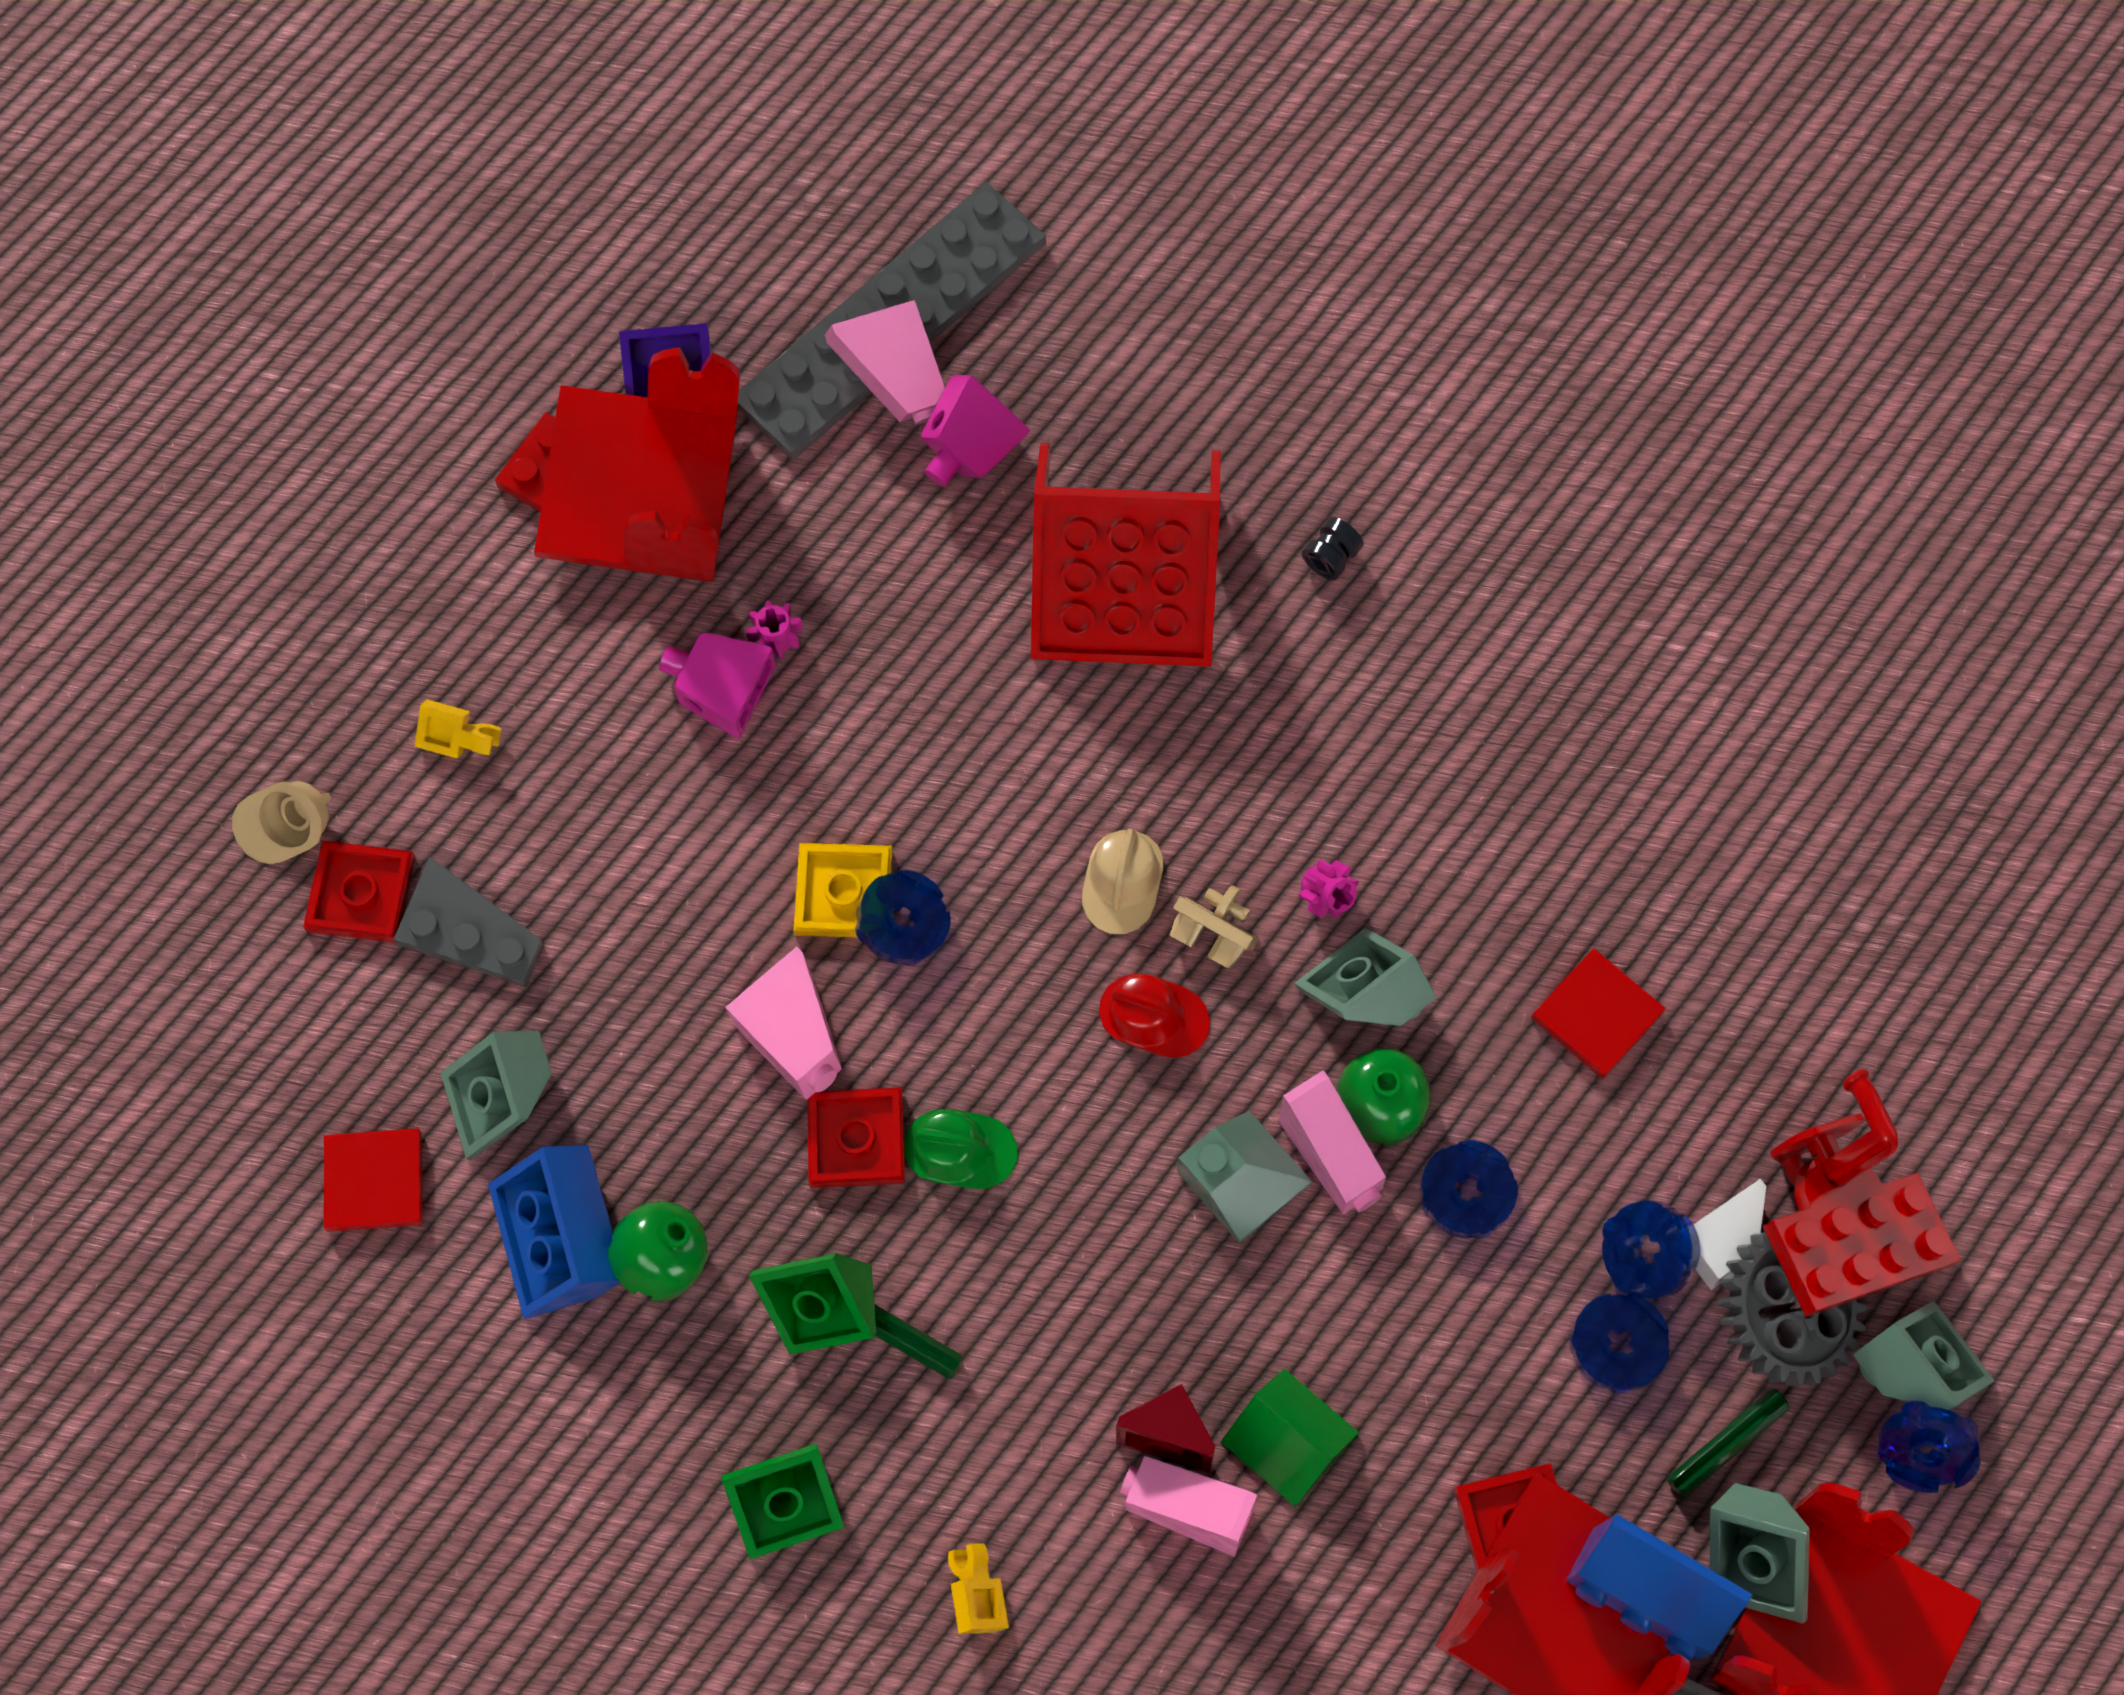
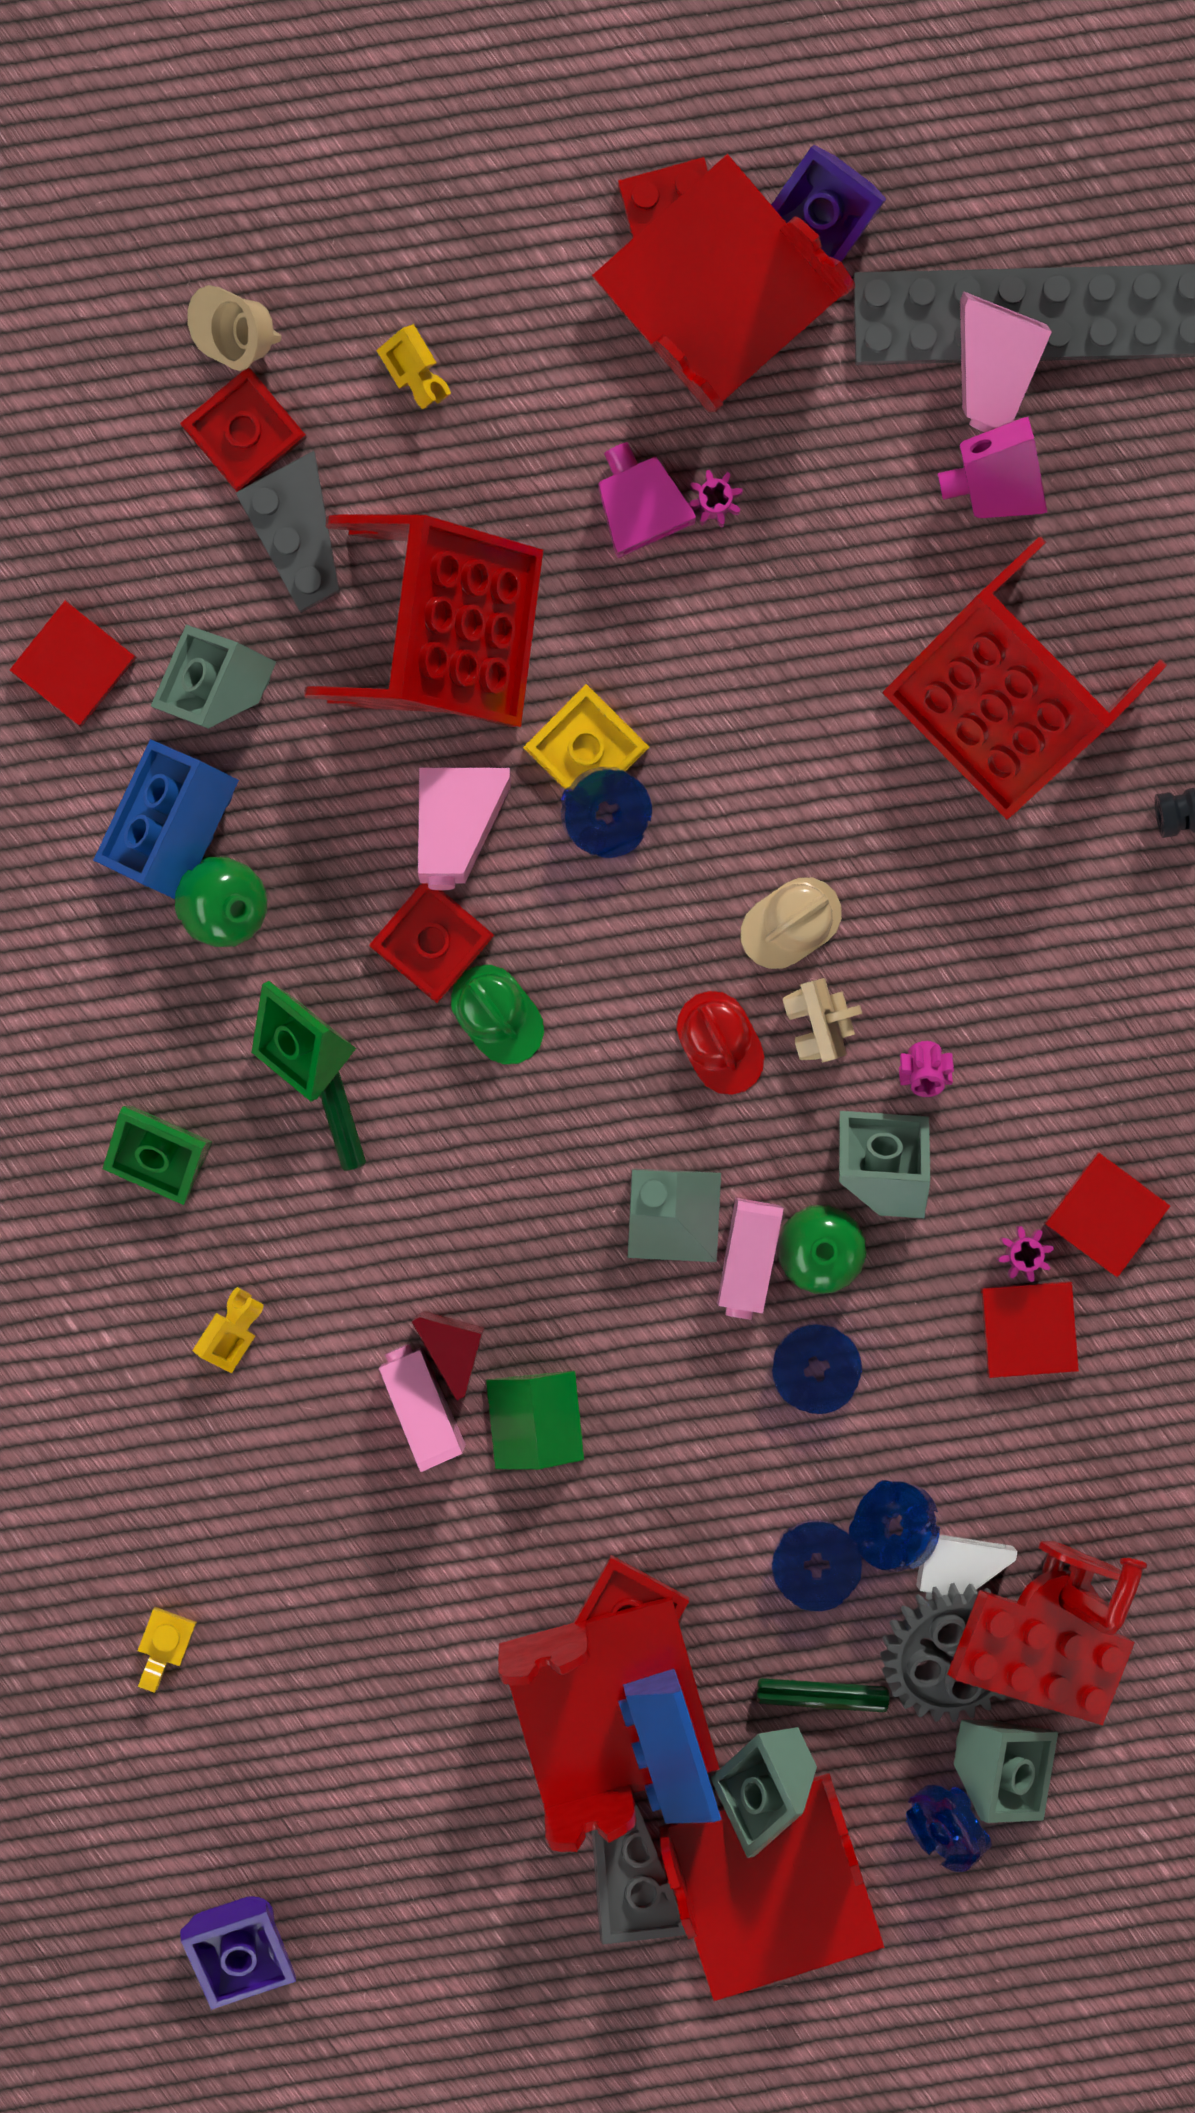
camera: 40 degrees right, 20 degrees up
(660, 868) = (459, 621): none -> red piece
(1538, 971) = (1035, 1260): none -> dark pink gear
(1568, 878) = (1107, 1214): none -> red tile

